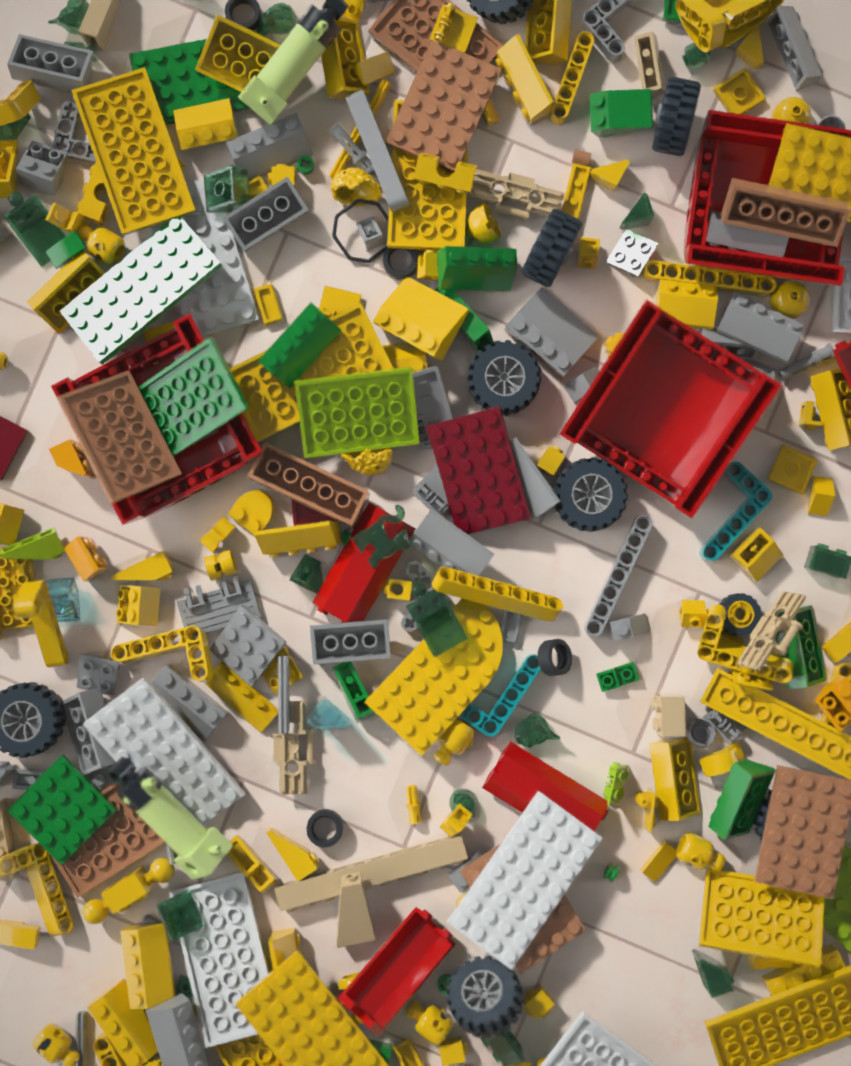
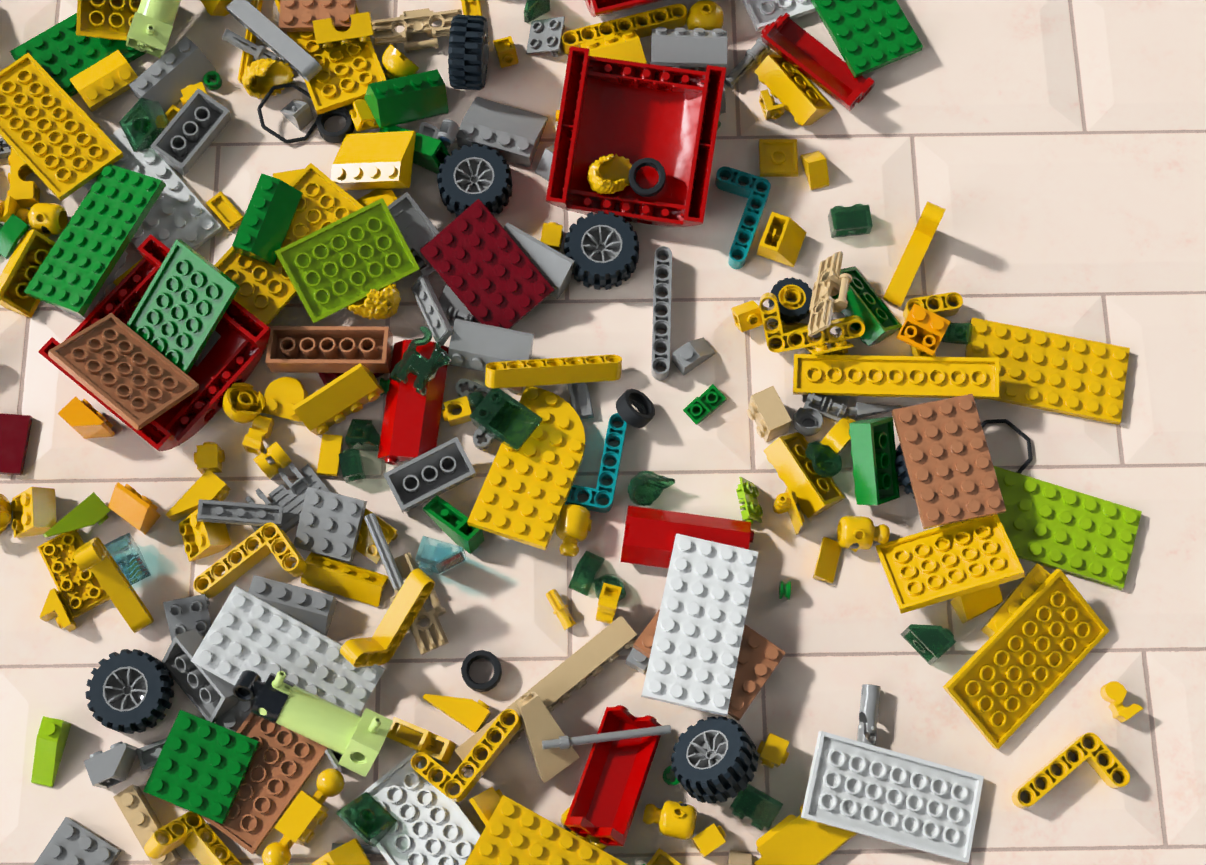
camera: 25 degrees left, 15 degrees down
(167, 538) = (209, 457): none -> yellow brick
(174, 605) = (239, 513): none -> light grey tile
(214, 502) = (243, 403): none -> yellow cylinder
(263, 764) = (394, 625): none -> yellow beam
(272, 579) = (329, 455): none -> yellow tile
(285, 909) = (471, 761): none -> yellow beam
(287, 598) = (352, 465): none -> clear green brick
(368, 927) = (565, 742): none -> light grey bar
(414, 487) = (431, 310): none -> light grey tile
(449, 781) = (586, 573): none -> clear green slope
(493, 318) = (446, 133): none -> light grey animal
(629, 429) = (609, 174): none -> yellow piece
(630, 1009) = (868, 713): none -> light grey piece
(665, 462) = (632, 177): none -> black tyre
(698, 777) = (824, 460): none -> clear green hair
(755, 743) = (863, 409): none -> light grey piece

